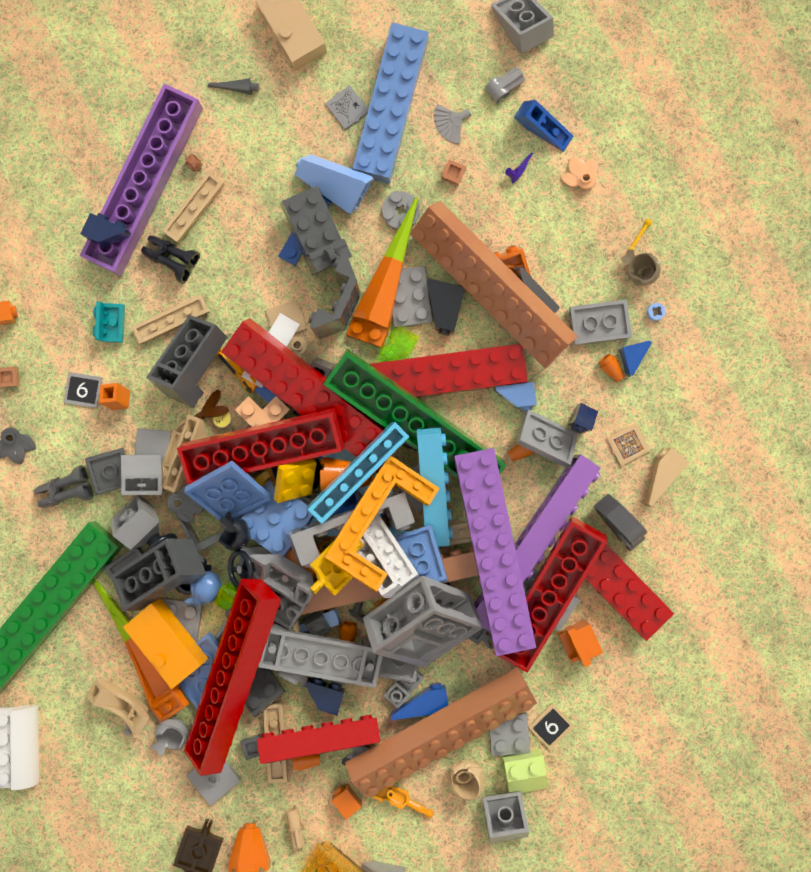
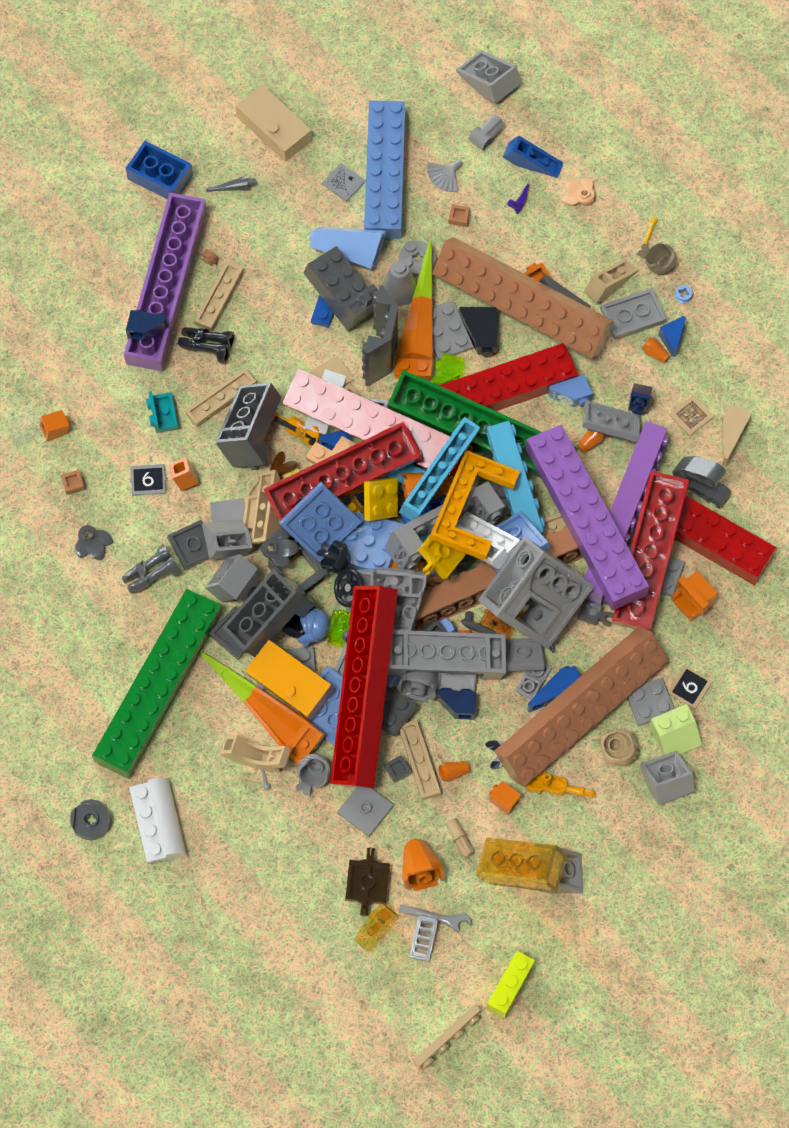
camera: 15 degrees left, 20 degrees down
(161, 54) = (159, 170): none -> blue brick
(318, 740) = (461, 735): brick -> none
(374, 239) = (400, 283): none -> light grey cone
(587, 280) = (609, 280): none -> tan slope

